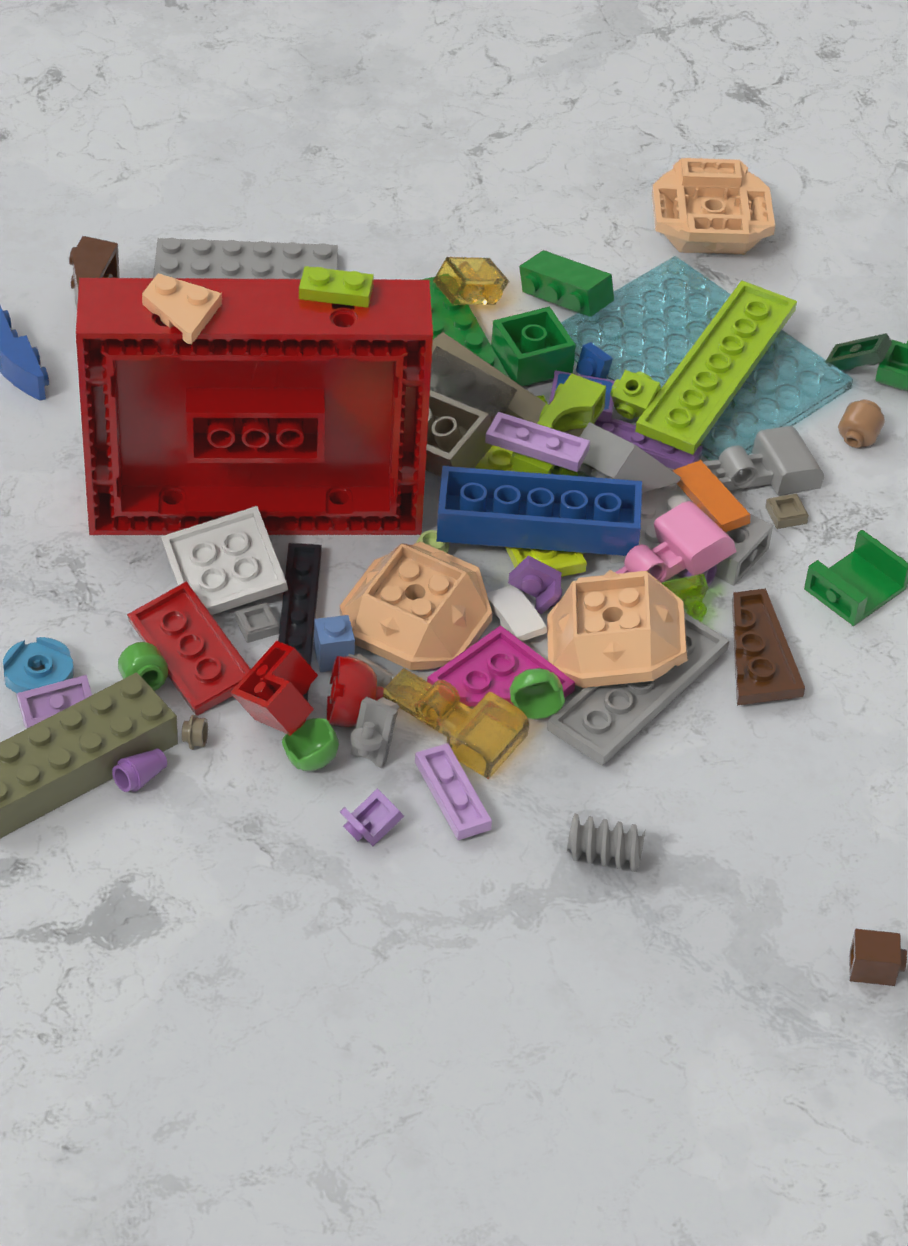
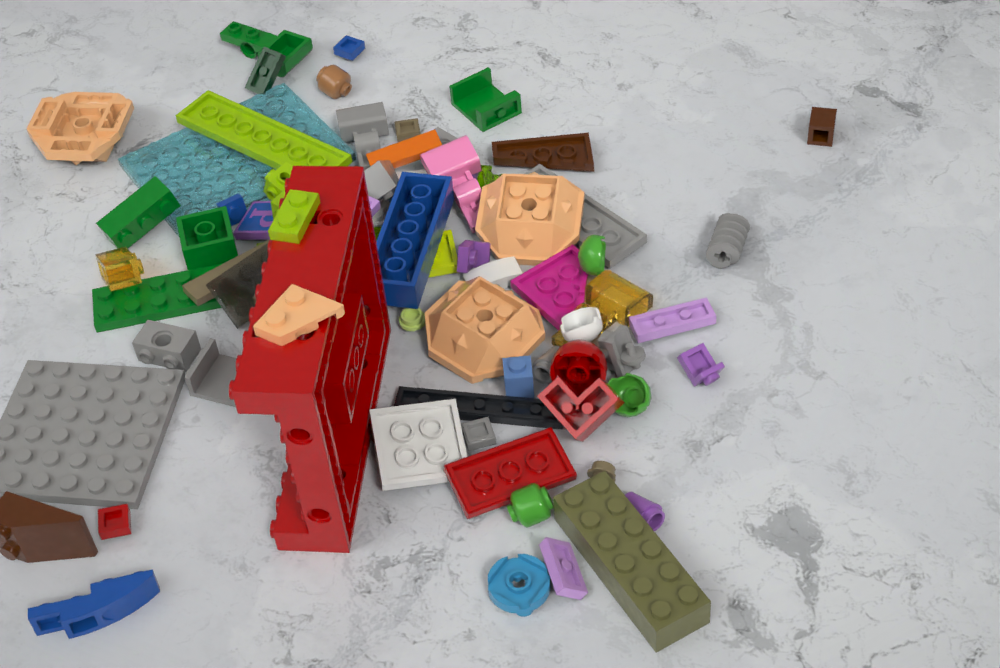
camera: 75 degrees left, 0 degrees up
(405, 685) = (582, 324): none -> white hair

